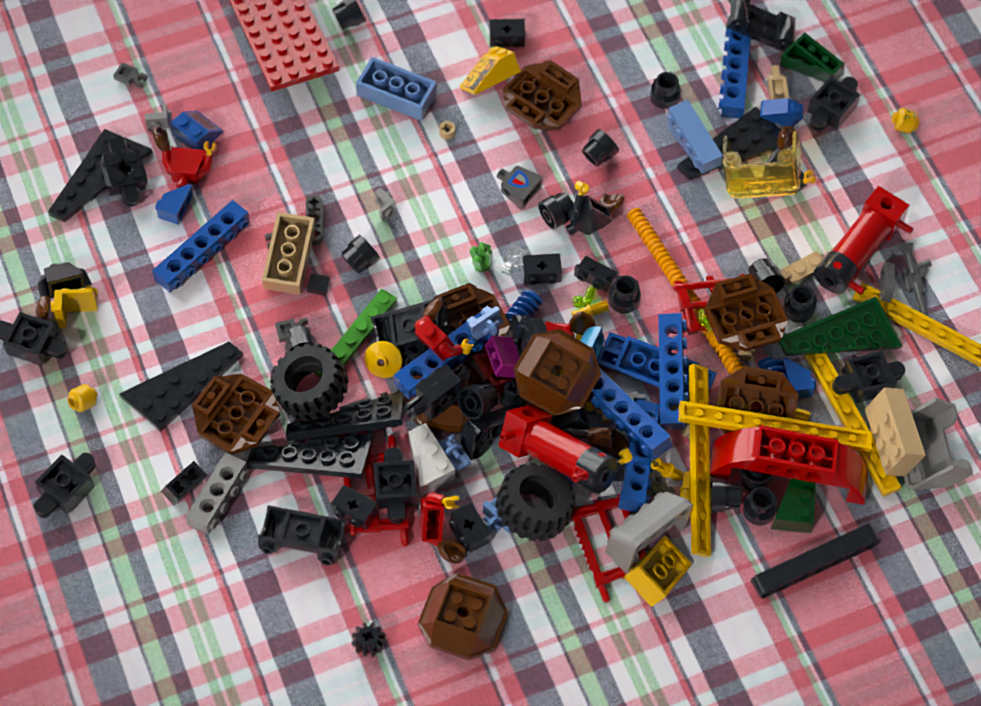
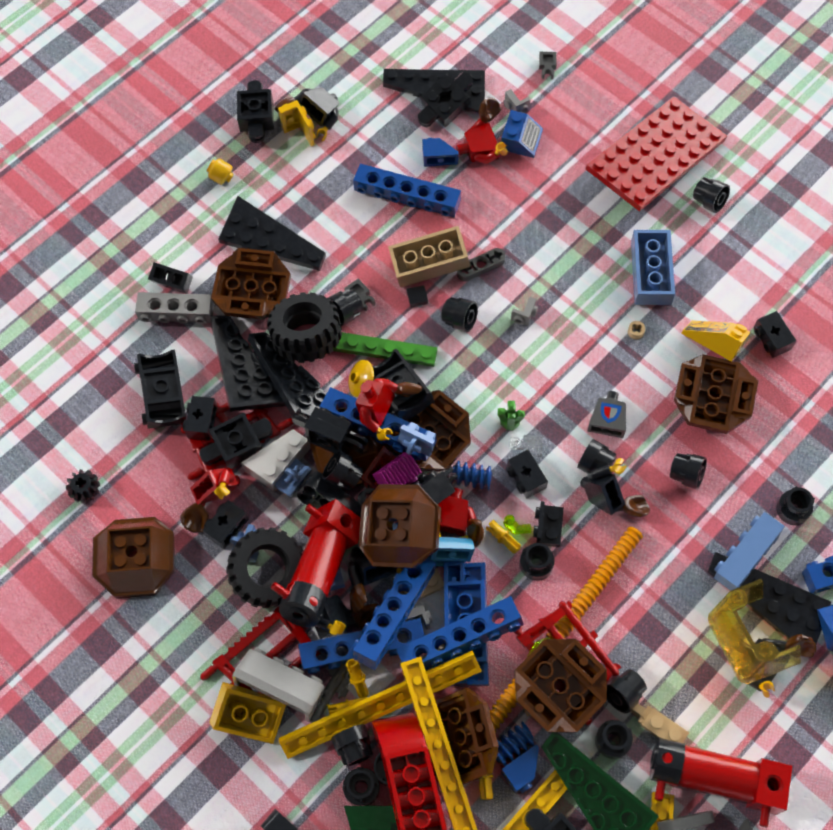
camera: 70 degrees right, 5 degrees up
(57, 479) = (136, 186): black brick -> none

